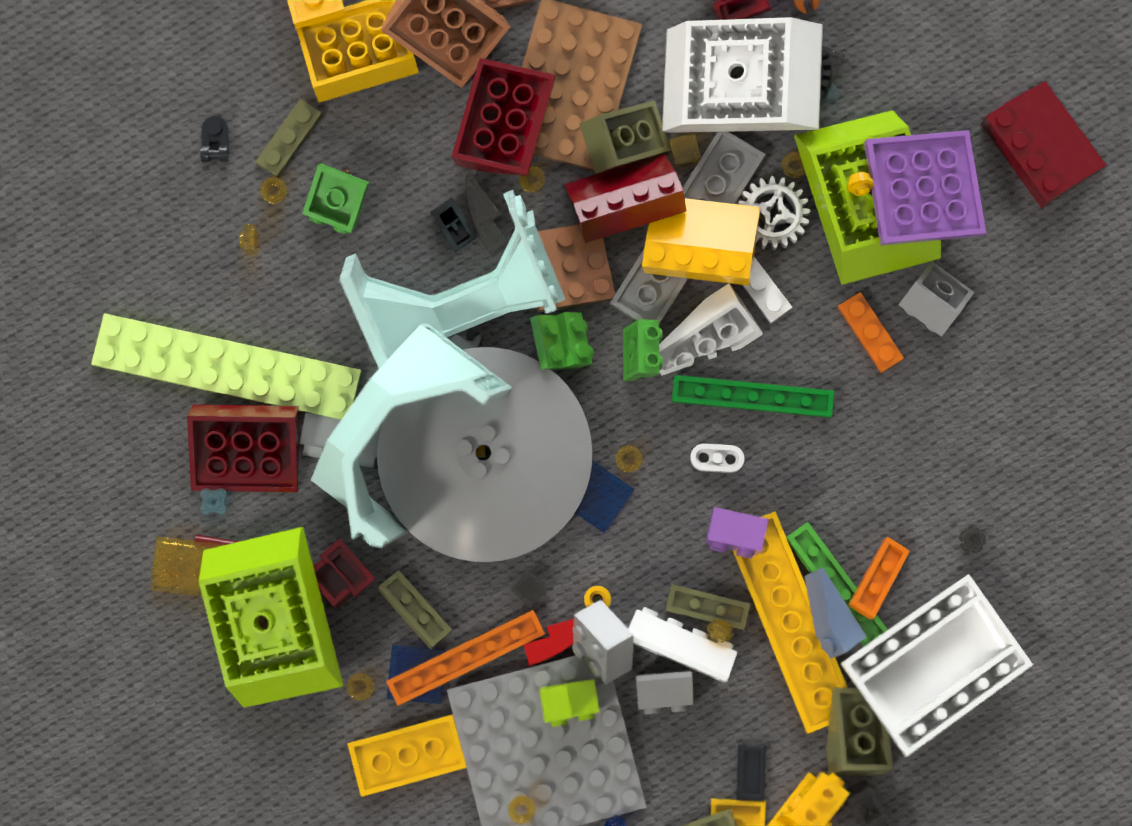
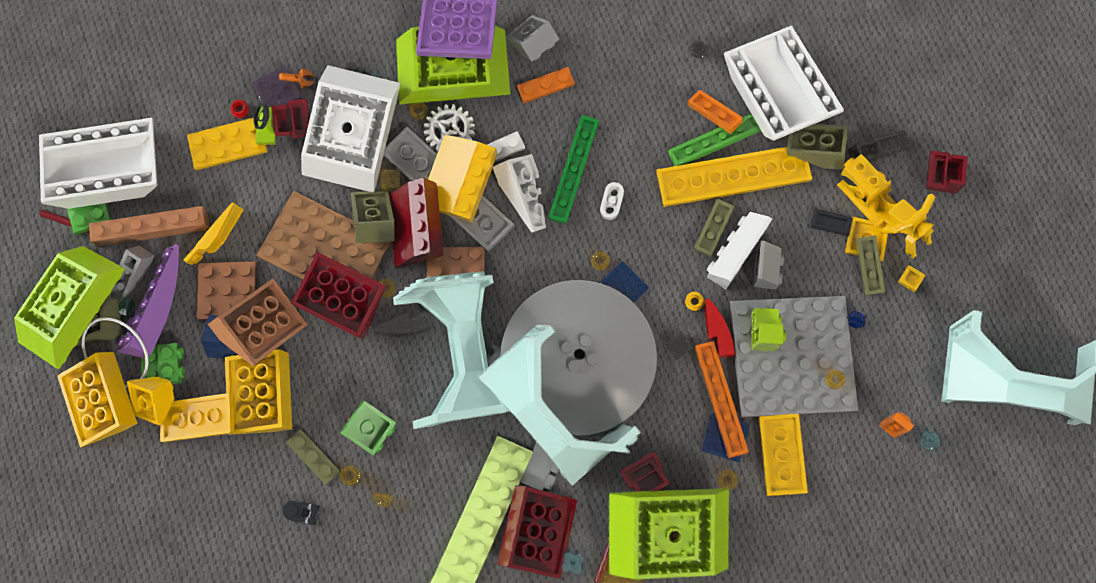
camera: 80 degrees left, 5 degrees down
(414, 609) = (679, 429): olive plate -> none
(453, 224) = (407, 349): black slope -> none
(562, 341) = (509, 287): bright green plate -> none
(602, 642) = (730, 297): light grey brick -> none
(641, 349) = (527, 234): bright green plate -> none
(720, 630) = (733, 220): clear yellow plate -> none
(736, 532) = (668, 193): medium lavender brick -> none
(831, 617) = (738, 145): sand blue slope -> none
(860, 183) = (446, 61): yellow plate -> none

